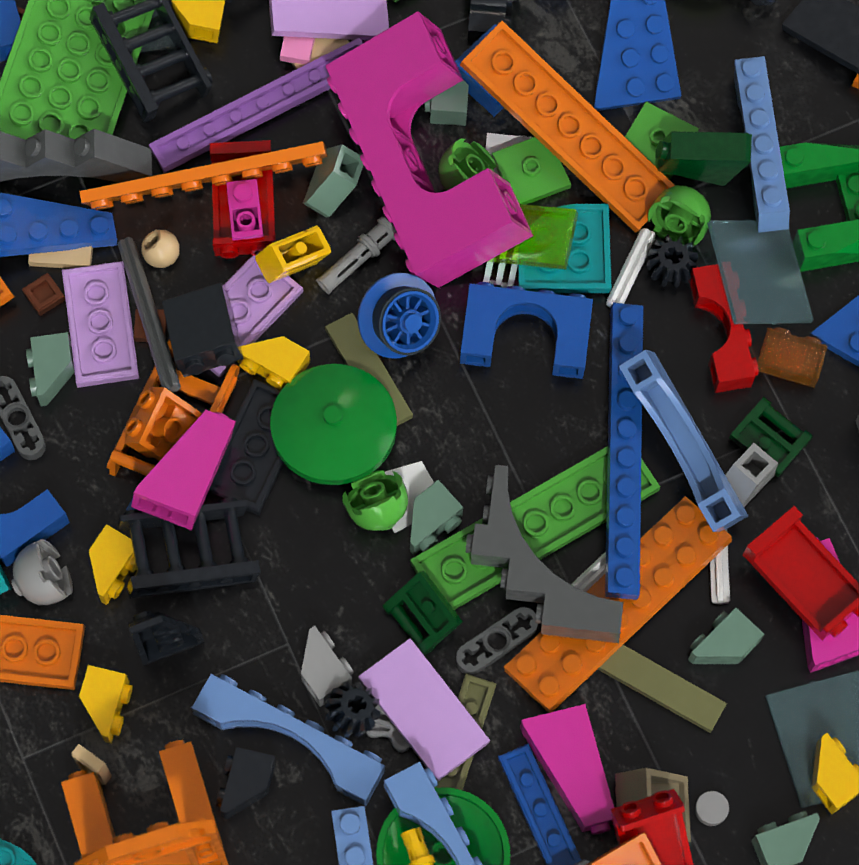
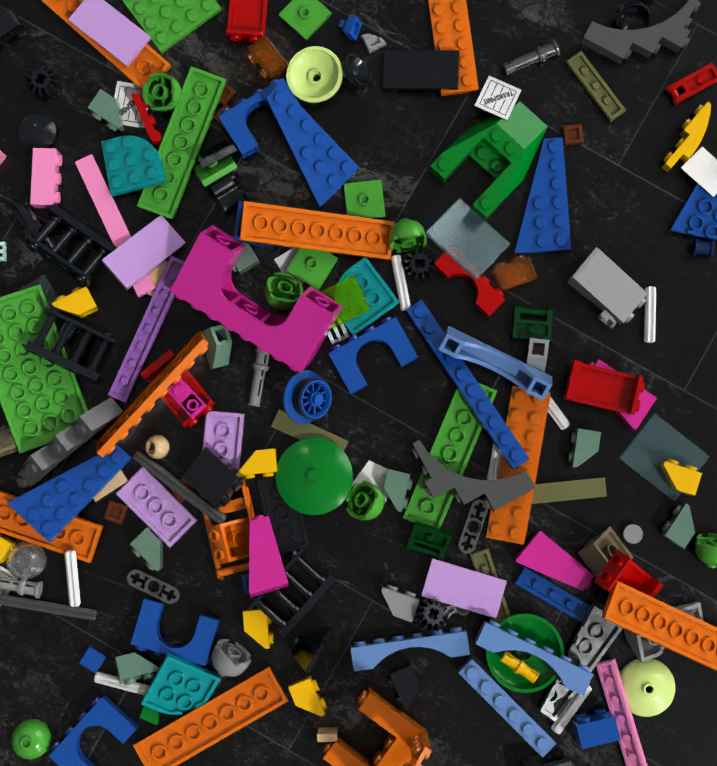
camera: 30 degrees left, 15 degrees up
(293, 254) = (228, 403): yellow brick -> none
(704, 155) = (397, 196): dark green slope -> none
(766, 165) = (421, 167): medium blue arch -> none

